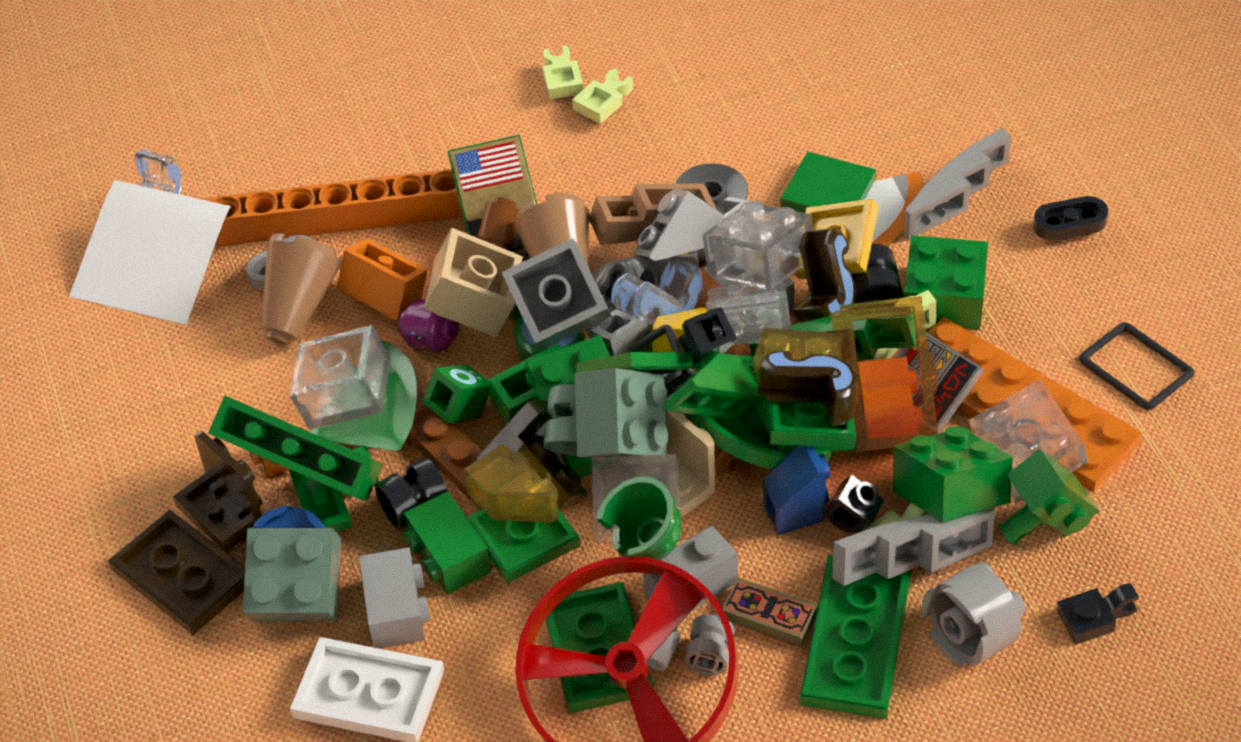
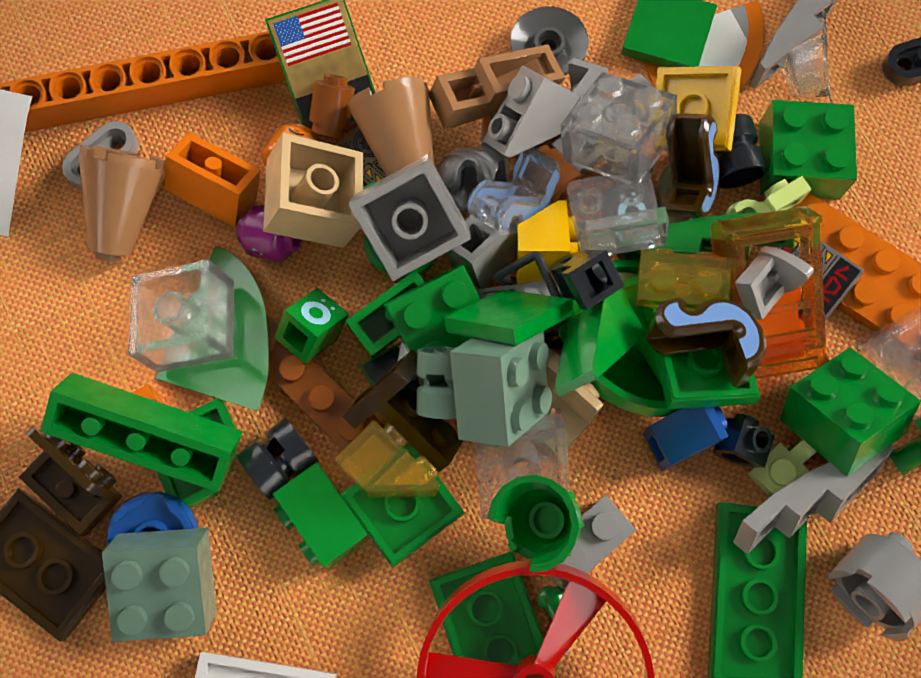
camera: 10 degrees left, 25 degrees up
(392, 597) = (273, 591): light grey brick -> none
(709, 647) = (612, 632): light grey wheel -> none
(769, 611) = (666, 575): tile -> none
(878, 352) = (769, 278): none -> light grey tile
(954, 212) = (807, 68): none -> clear piece

